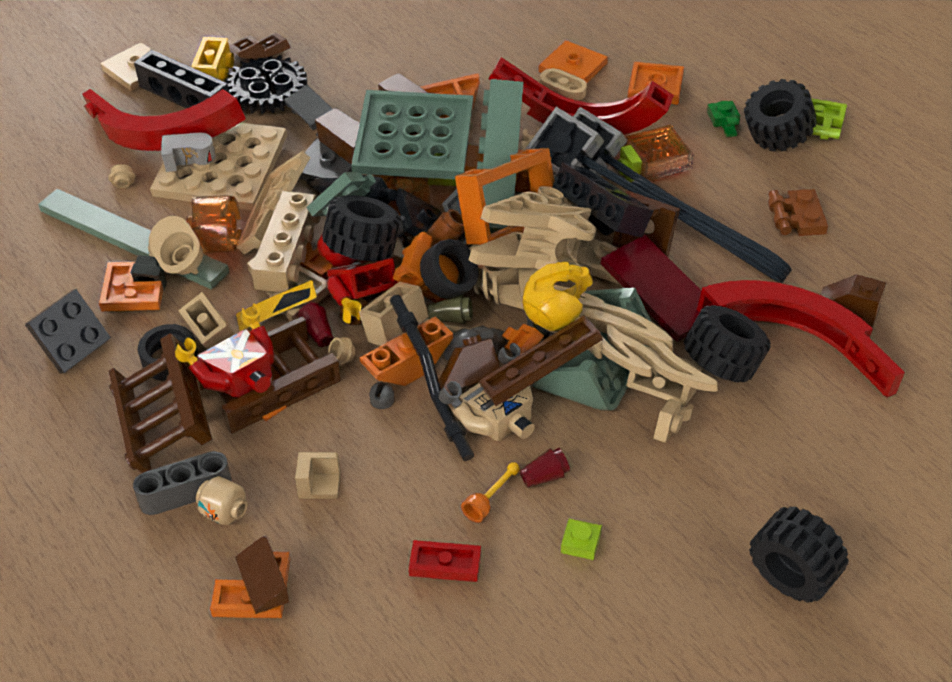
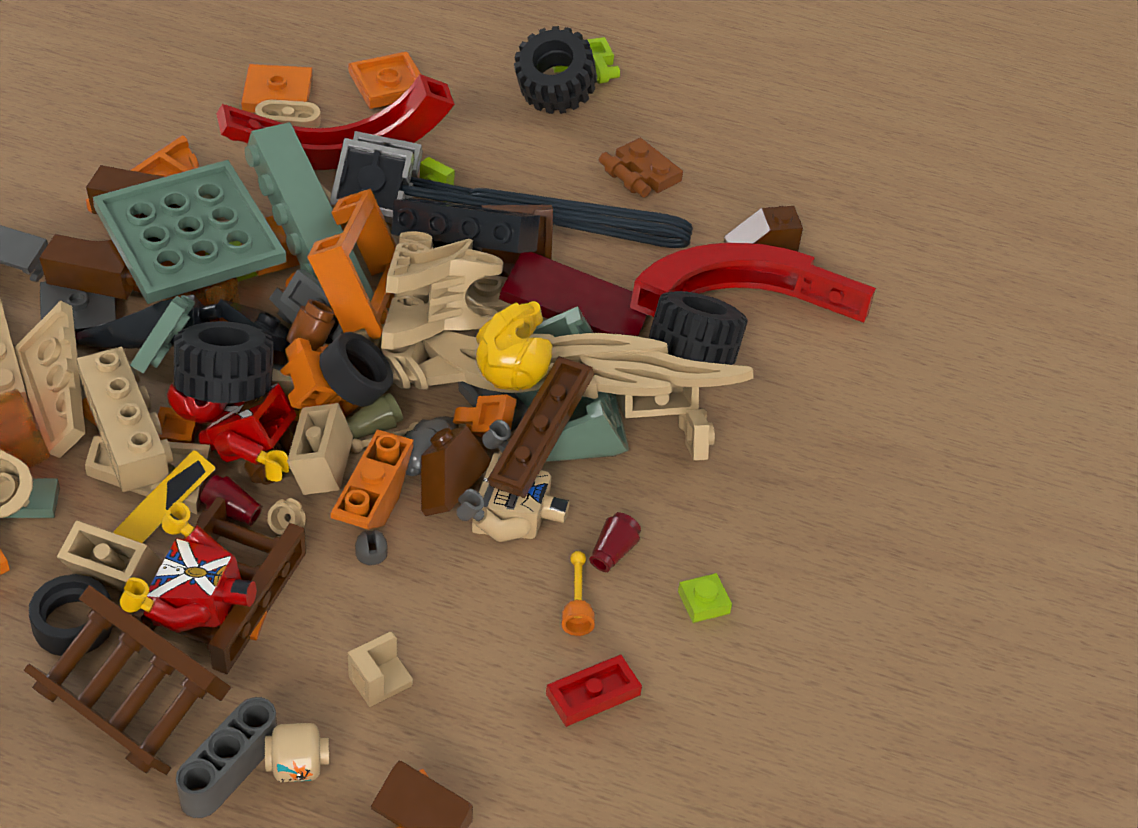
camera: 40 degrees left, 0 degrees up
(454, 428) = (365, 449): black bar -> none
(661, 152) = (464, 151): clear orange brick -> none
(725, 115) = (489, 91): green plate -> none
(799, 554) = (930, 507): black tyre -> none

